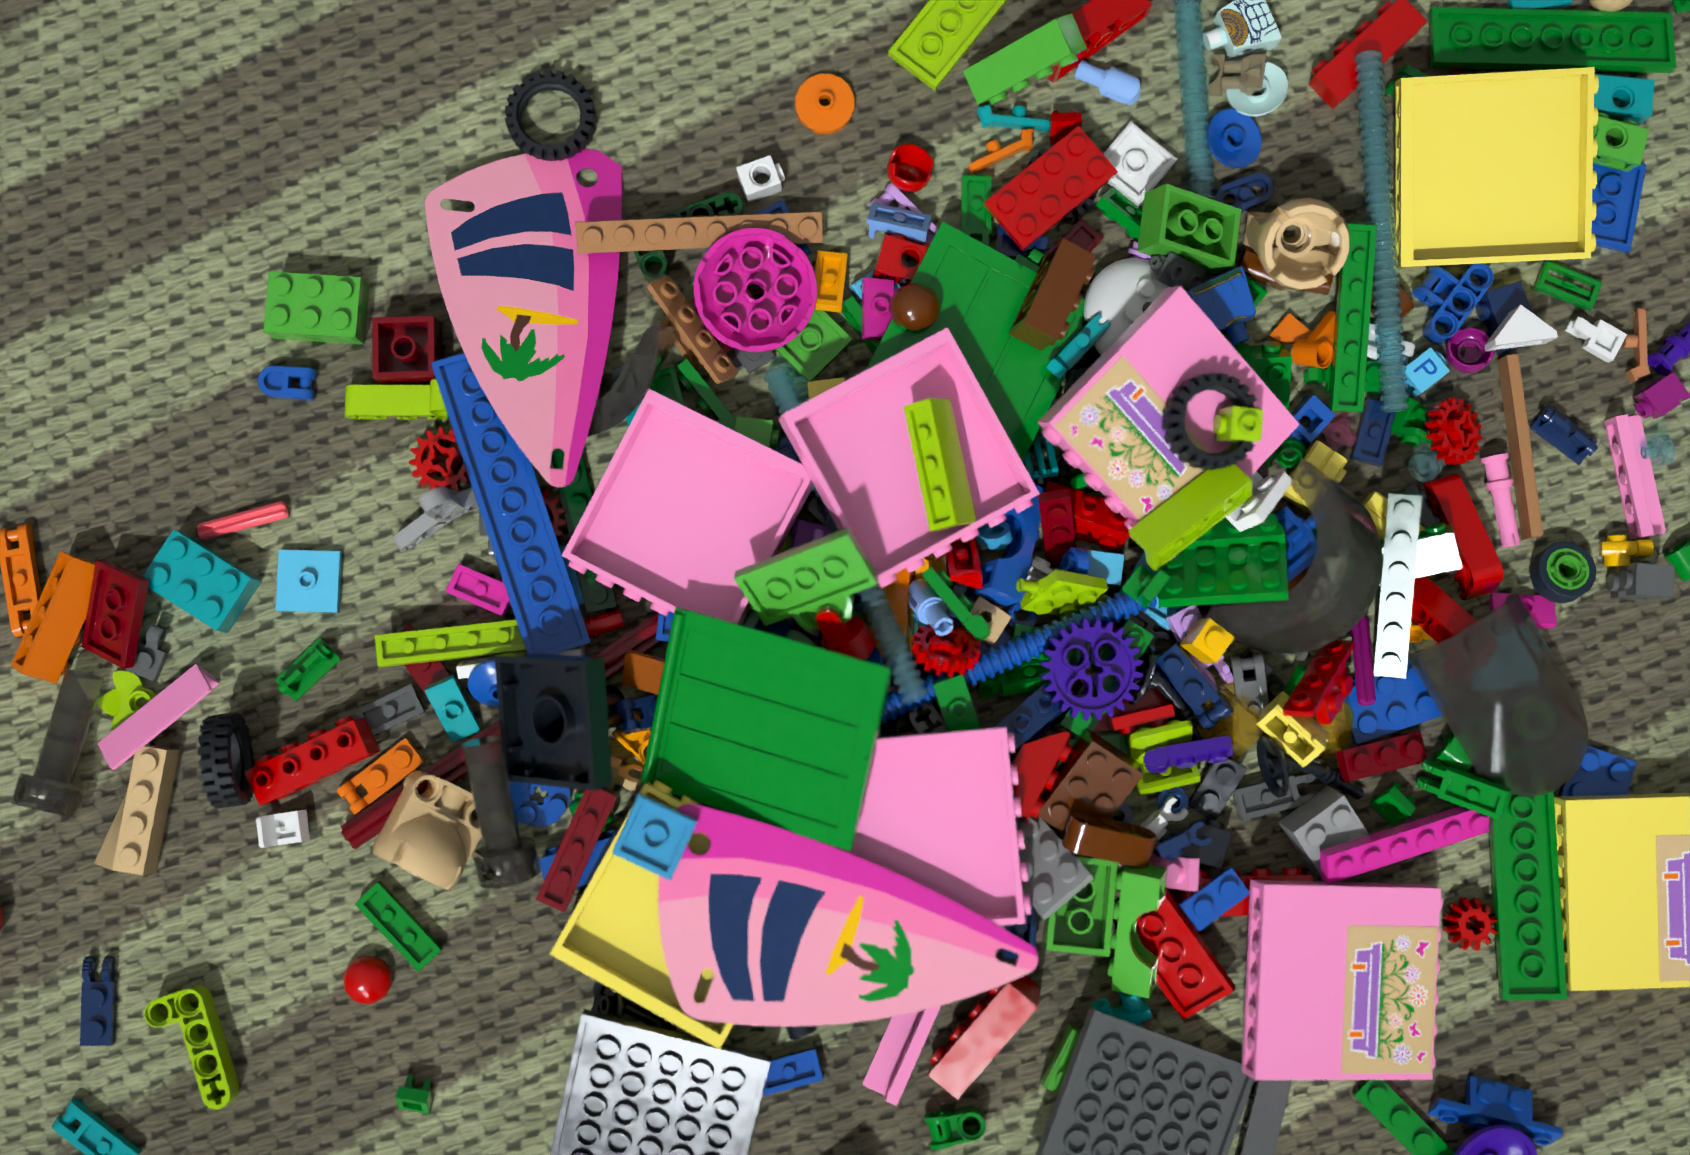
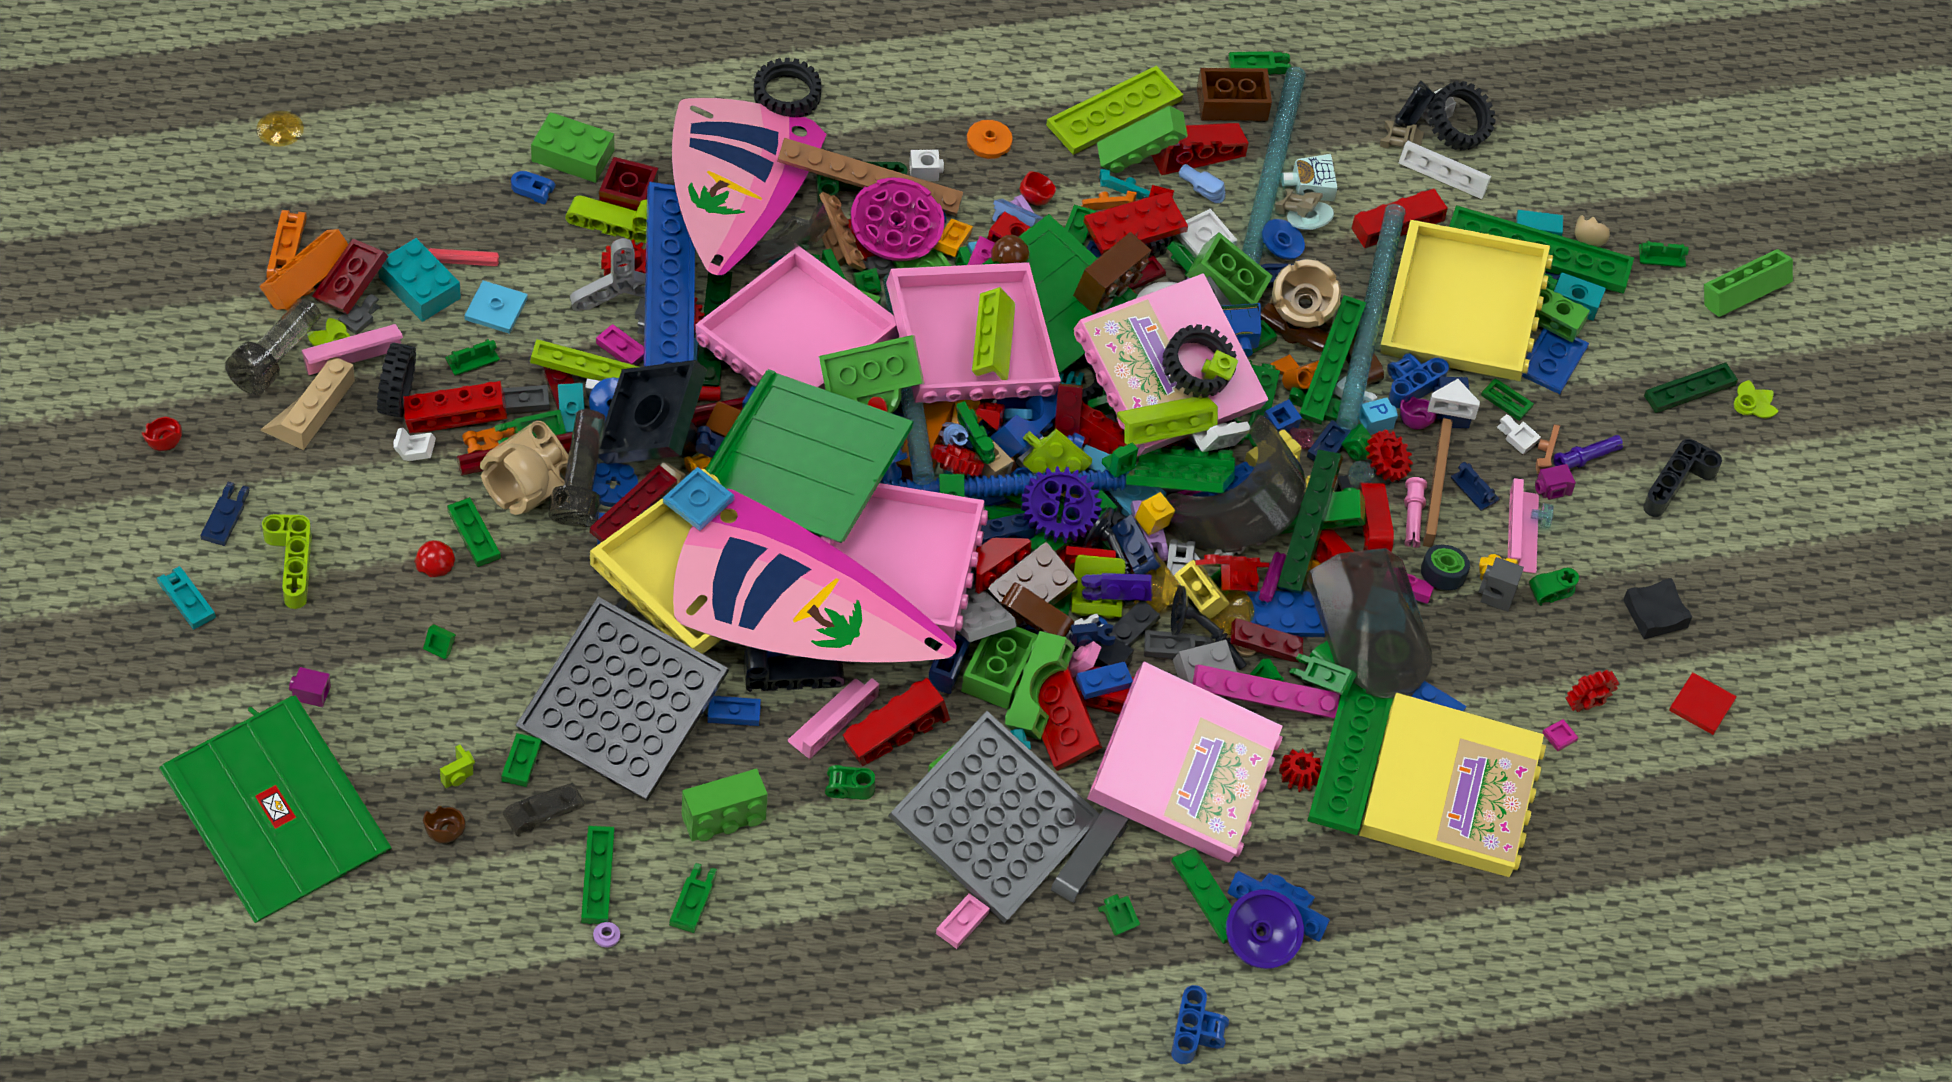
camera: 10 degrees right, 30 degrees down
(421, 755) = (552, 419): none -> green hinge
(745, 387) = (867, 280): none -> green tile

